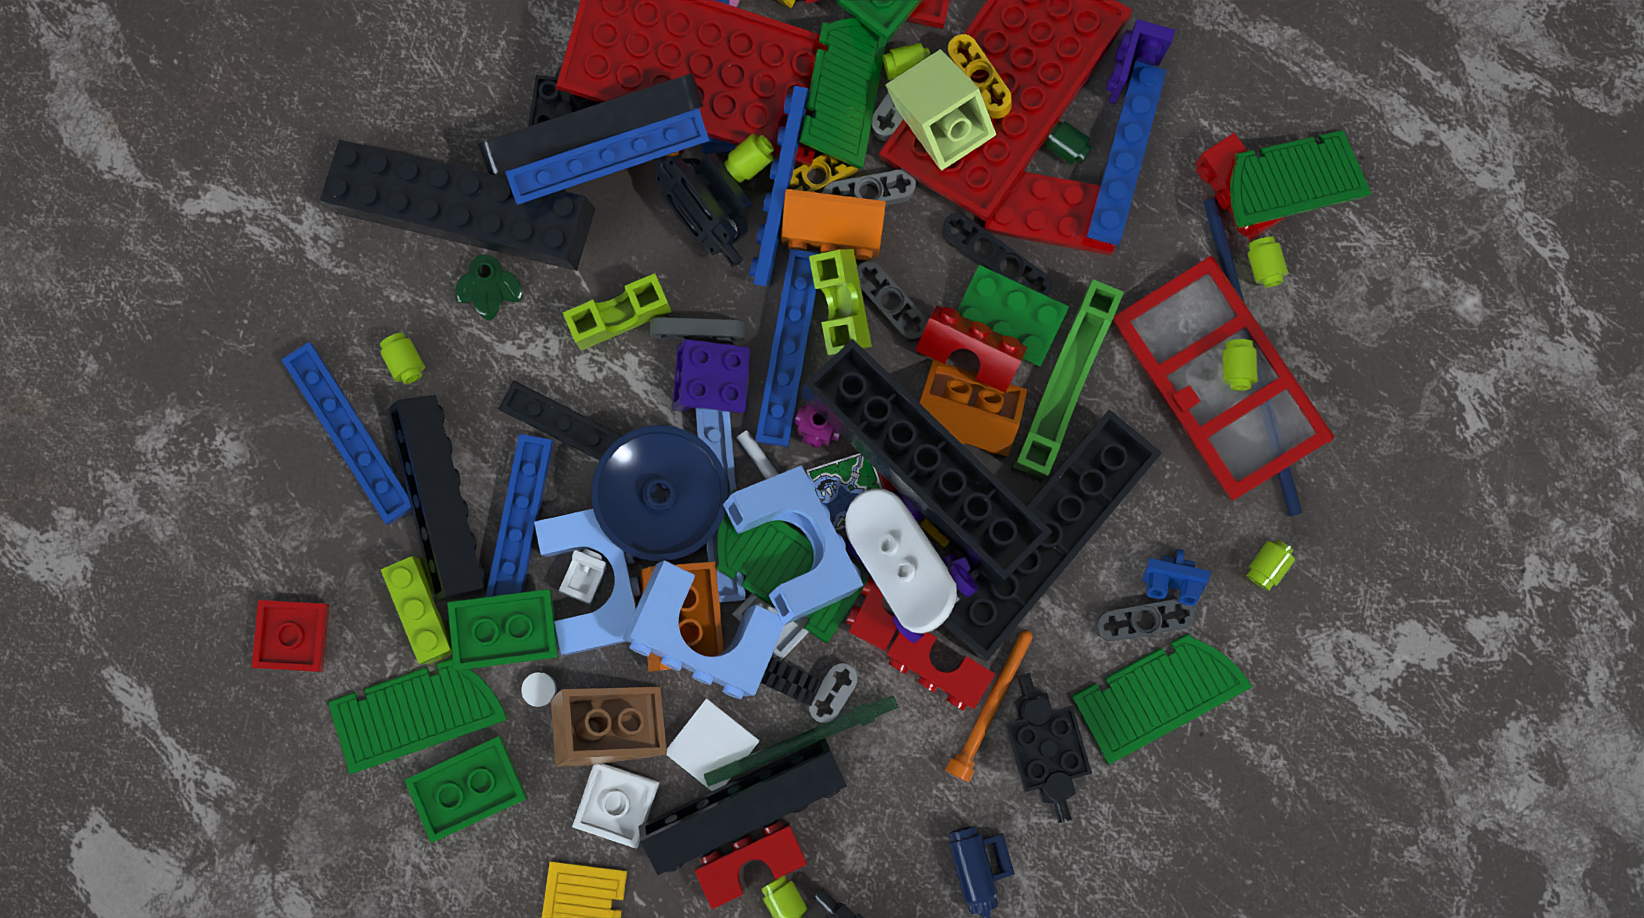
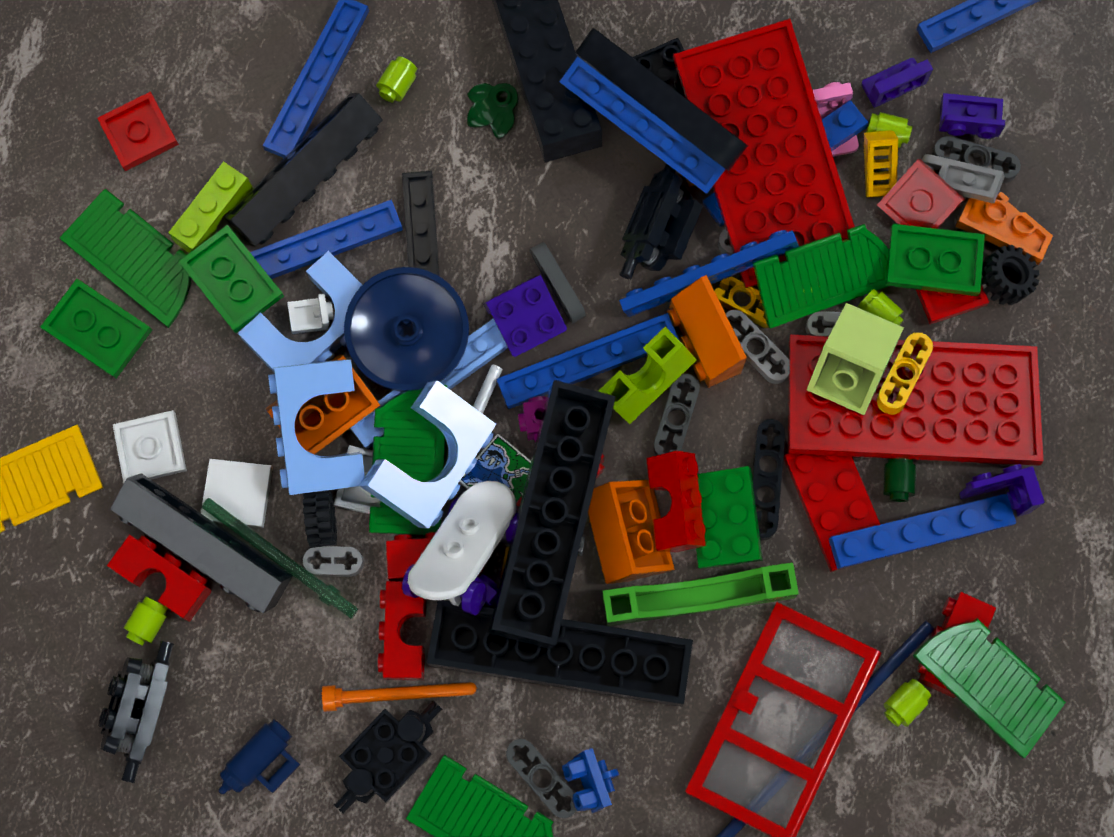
camera: 60 degrees right, 5 degrees down
(539, 689) = (204, 336): white tile -> none
(598, 322) = (515, 204): lime arch -> none
(607, 725) = (205, 402): medium nougat slope -> none
(749, 157) = (716, 234): lime brick -> none
(1239, 364) = (799, 727): lime brick -> none

